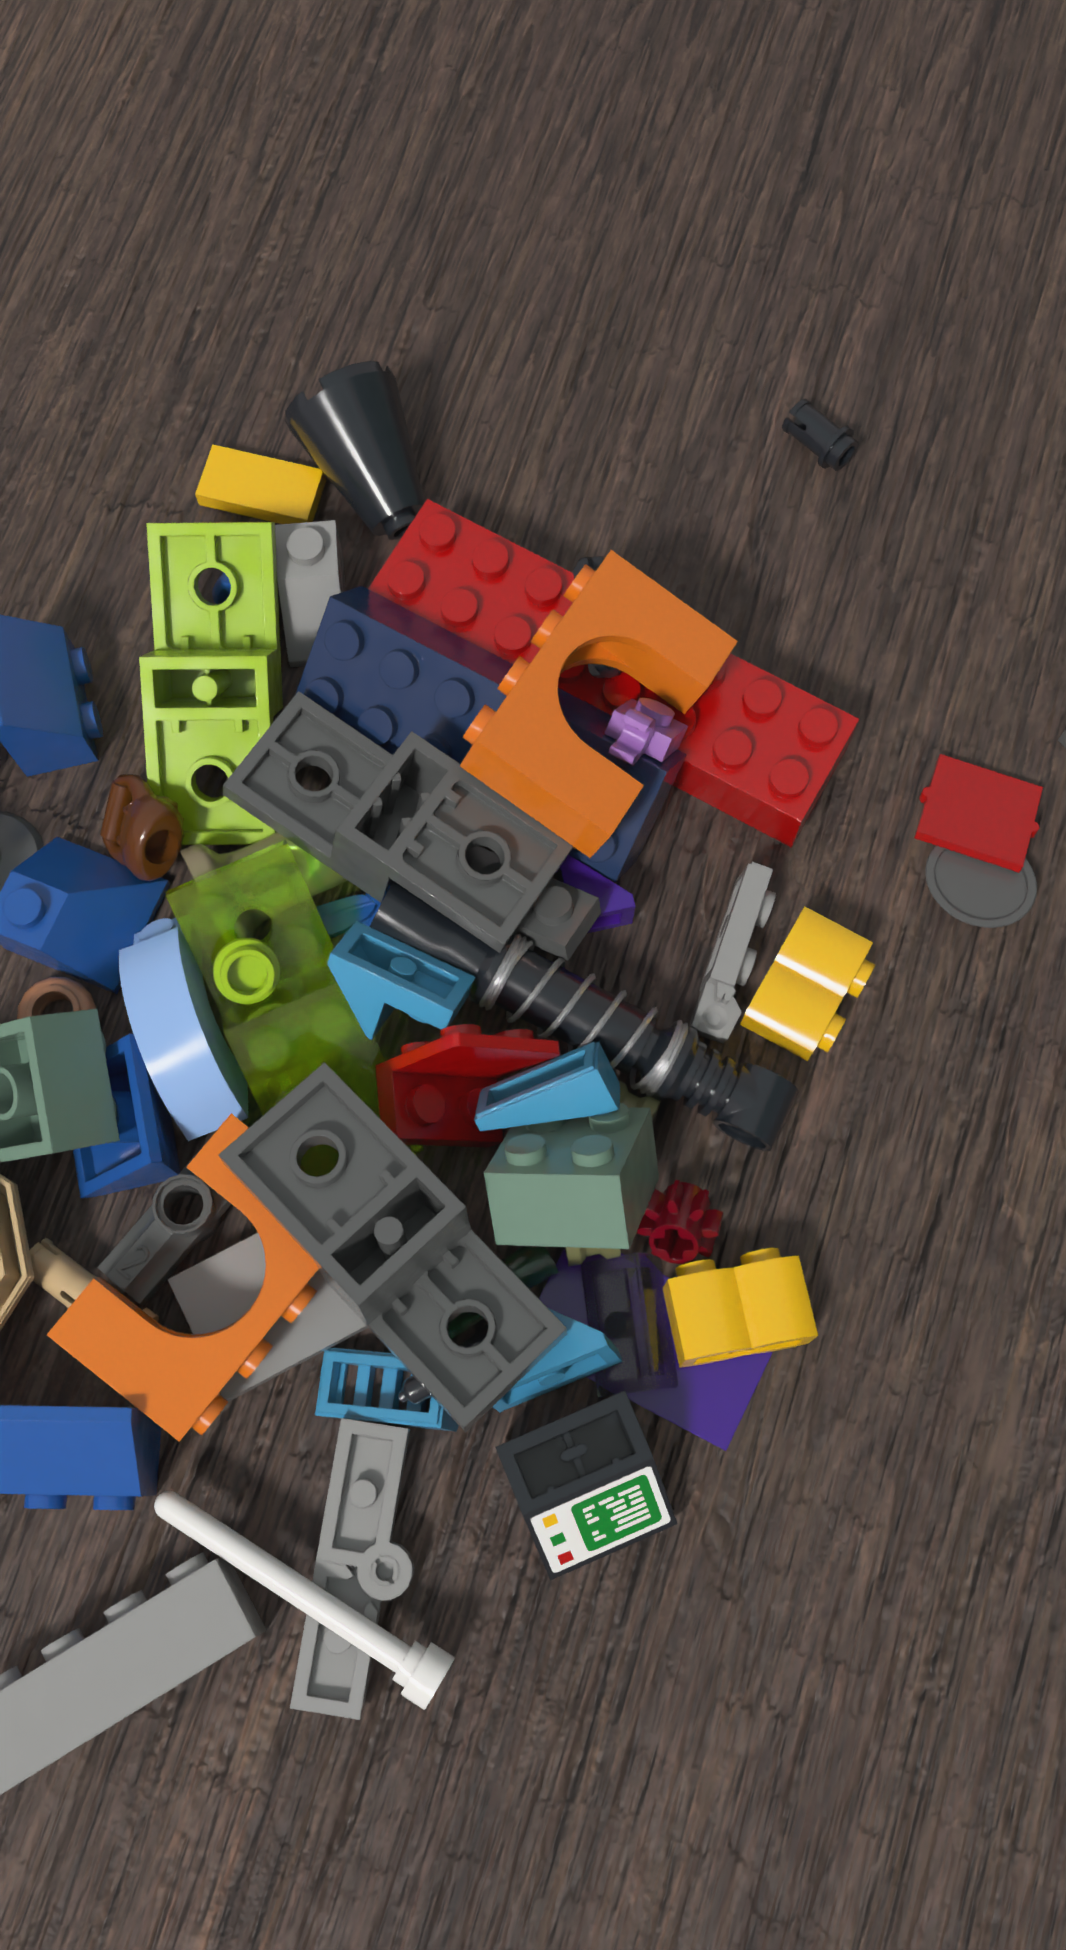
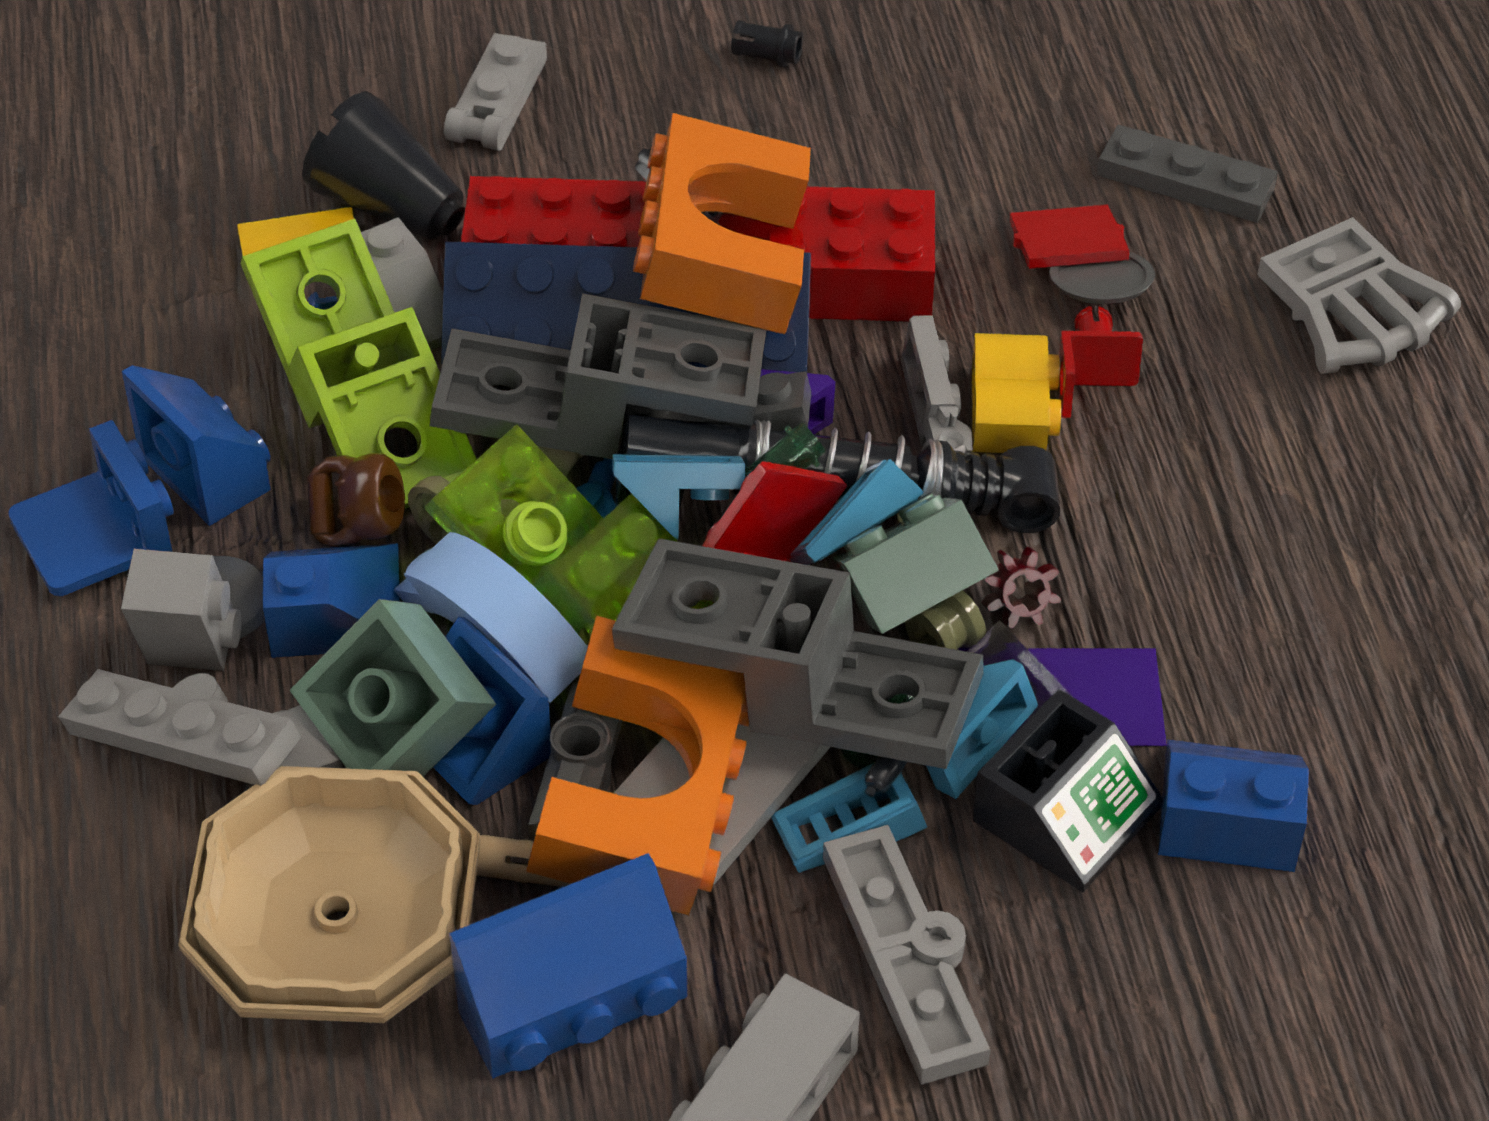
camera: 30 degrees left, 25 degrees down
(416, 1667) = (1014, 981): white piece -> none
(519, 1006) = (795, 449): none -> clear green pin
(532, 382) = (496, 91): none -> light grey plate
(644, 729) = (773, 227): medium lavender plate -> none
(738, 1308) = (1110, 627): yellow brick -> none
(746, 1555) = (1233, 805): none -> blue slope
(917, 975) = (1096, 356): none -> red bracket

